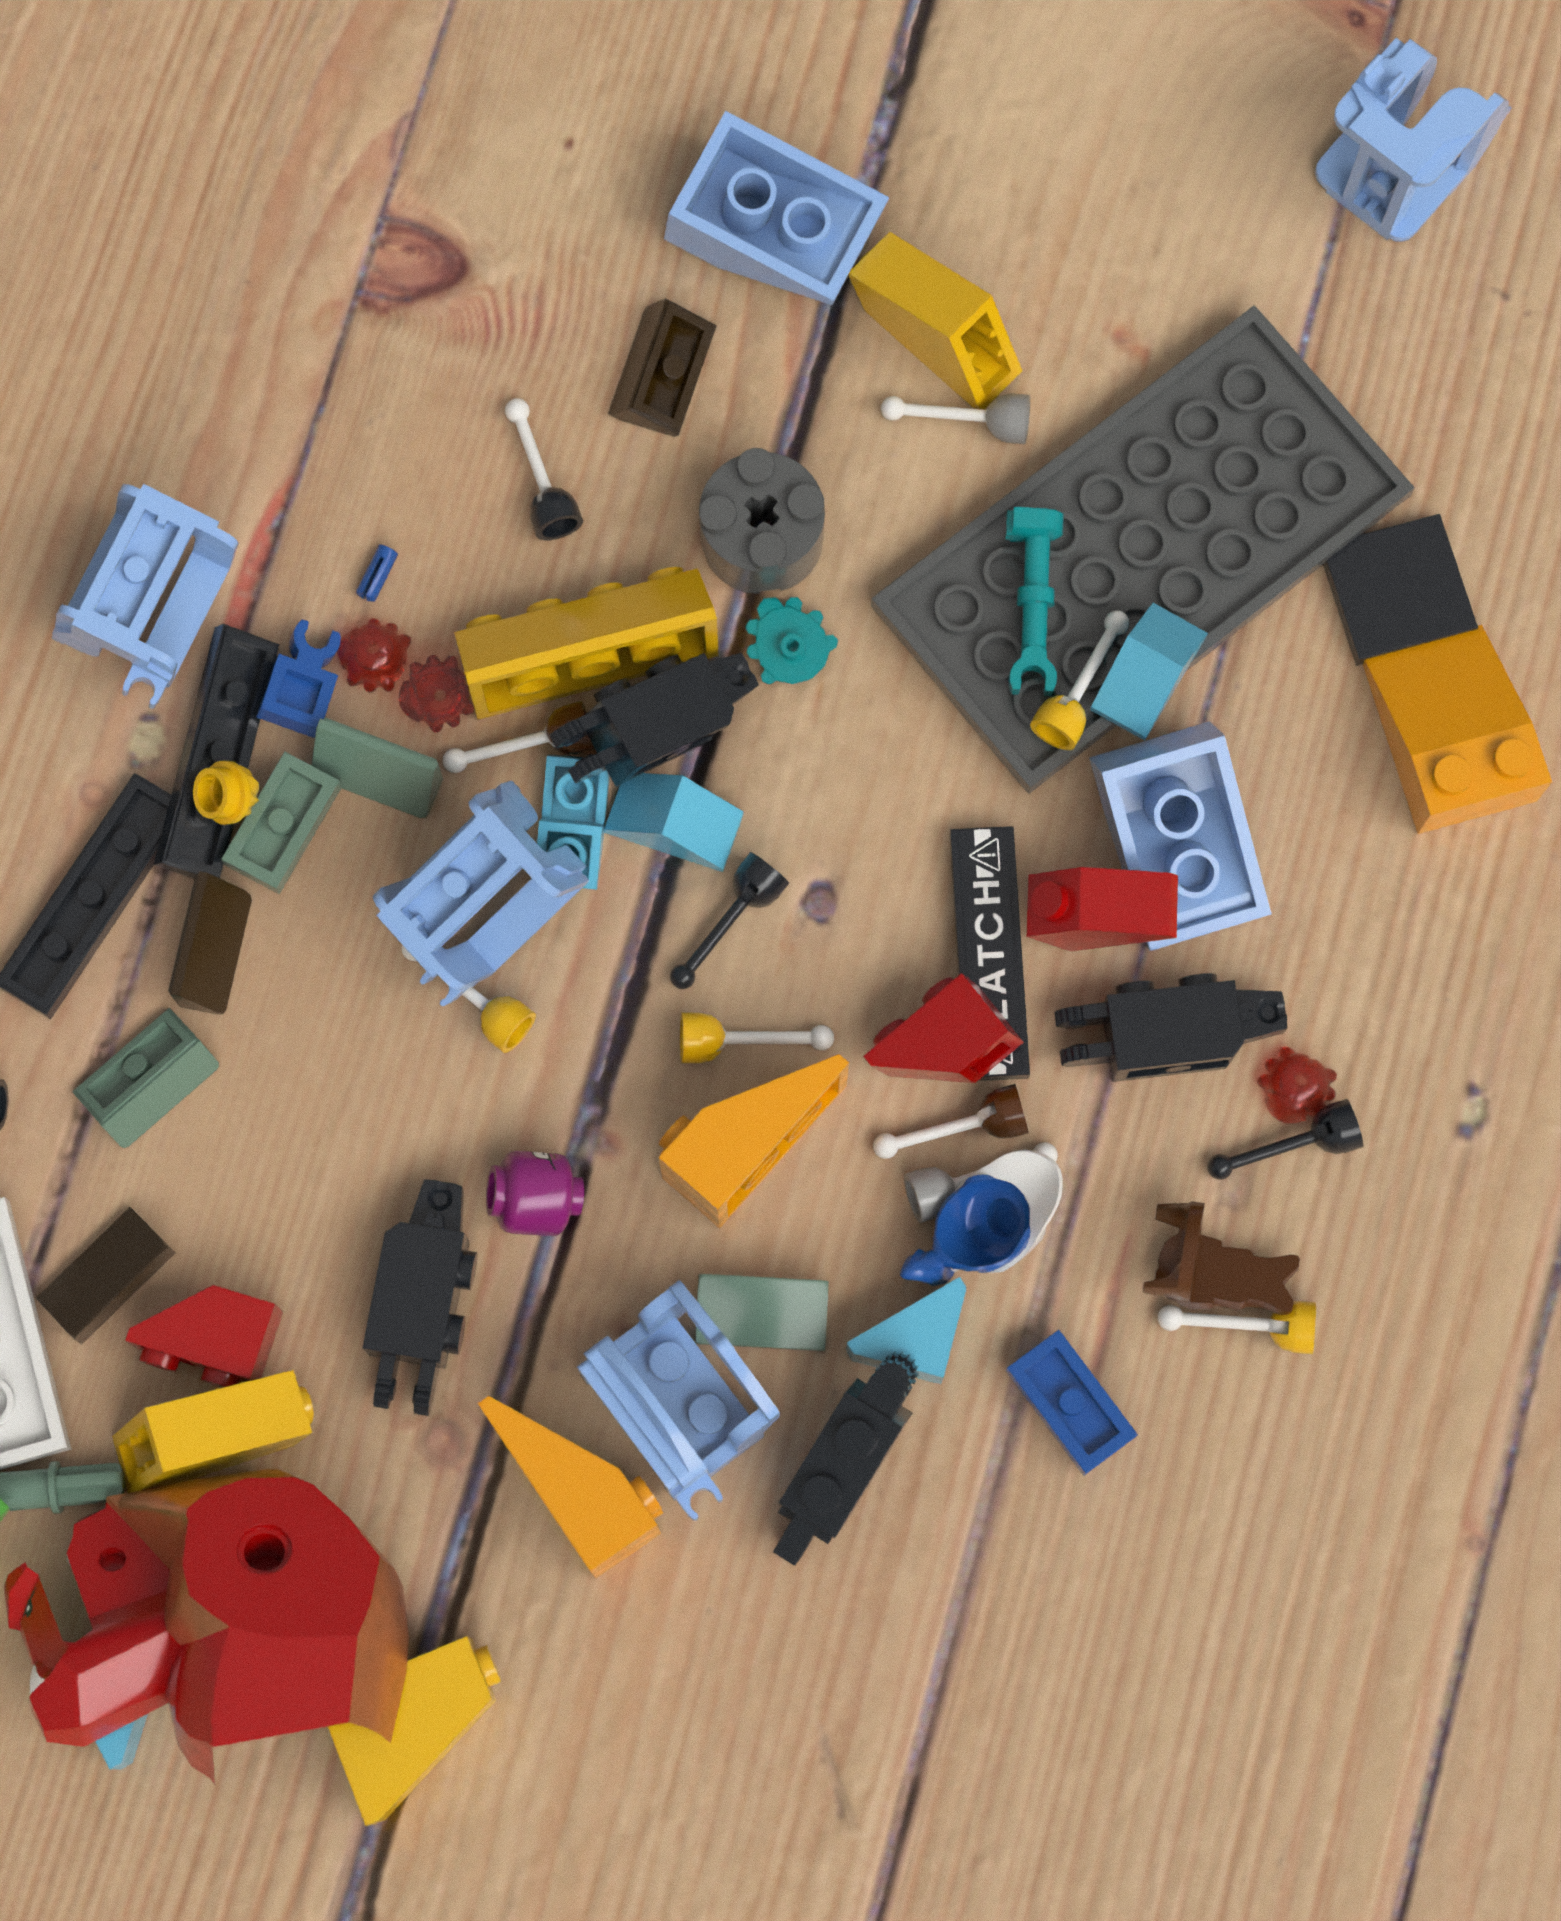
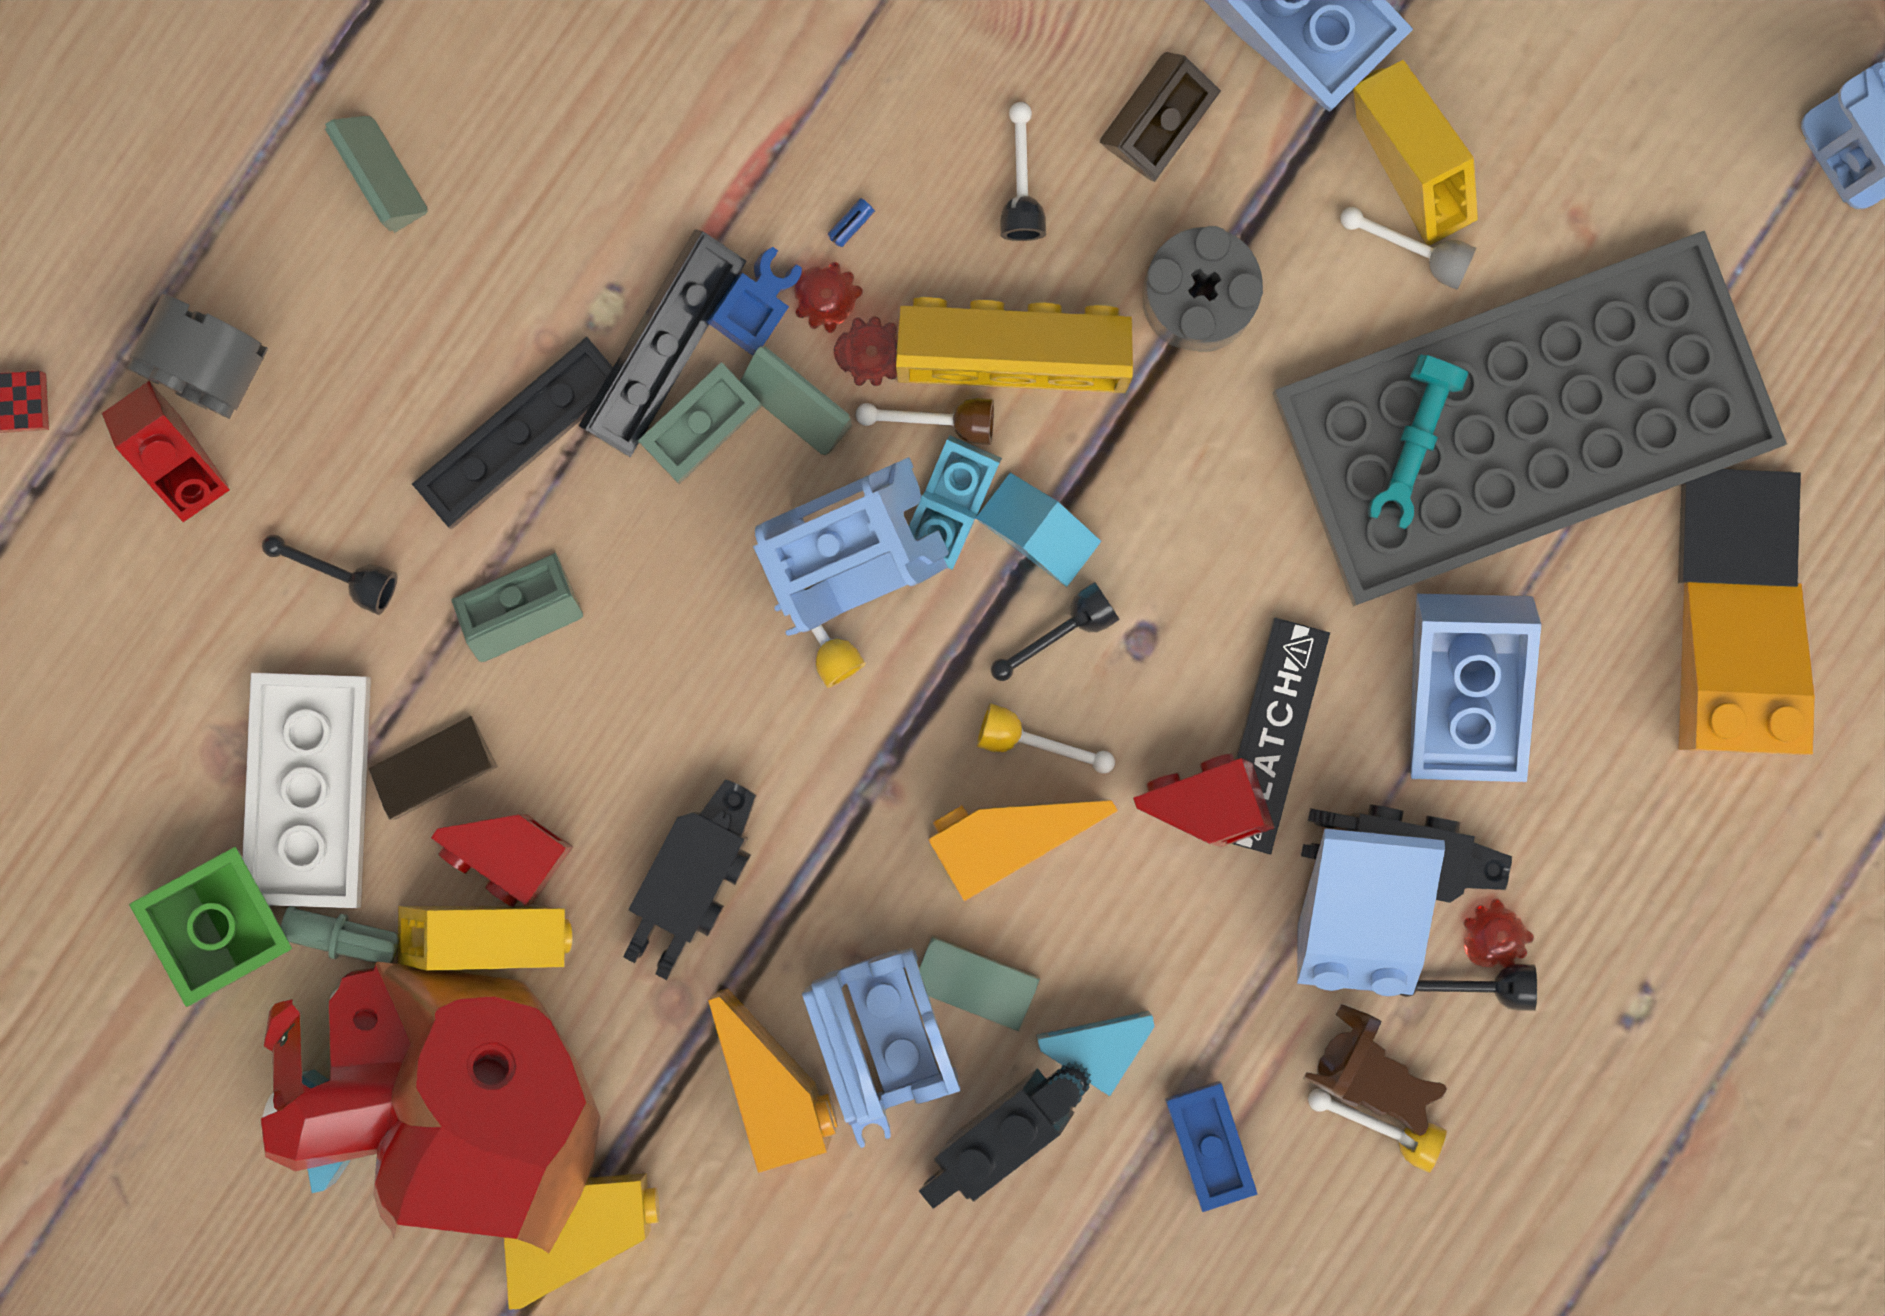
camera: 20 degrees right, 10 degrees up
(130, 578) = (638, 179): light blue animal -> none
(210, 944) = (606, 511): dark brown slope -> none
(225, 792) = (658, 385): yellow plate -> none
(533, 1193) = (814, 820): magenta head -> none
(658, 717) = (1055, 440): black hinge -> none
(788, 641) = (1190, 402): teal piece -> none
(931, 1186) = (1155, 927): light grey hinge -> none
(991, 1218) = (1195, 974): blue hair -> none
(998, 1115) = (1232, 879): hinge -> none
(1062, 718) = (1406, 556): hinge -> none
(1101, 907) = (1382, 735): red slope -> none
(1148, 670) = (1496, 536): medium azure slope -> none
(1149, 1087) = (1368, 912): none -> light blue slope

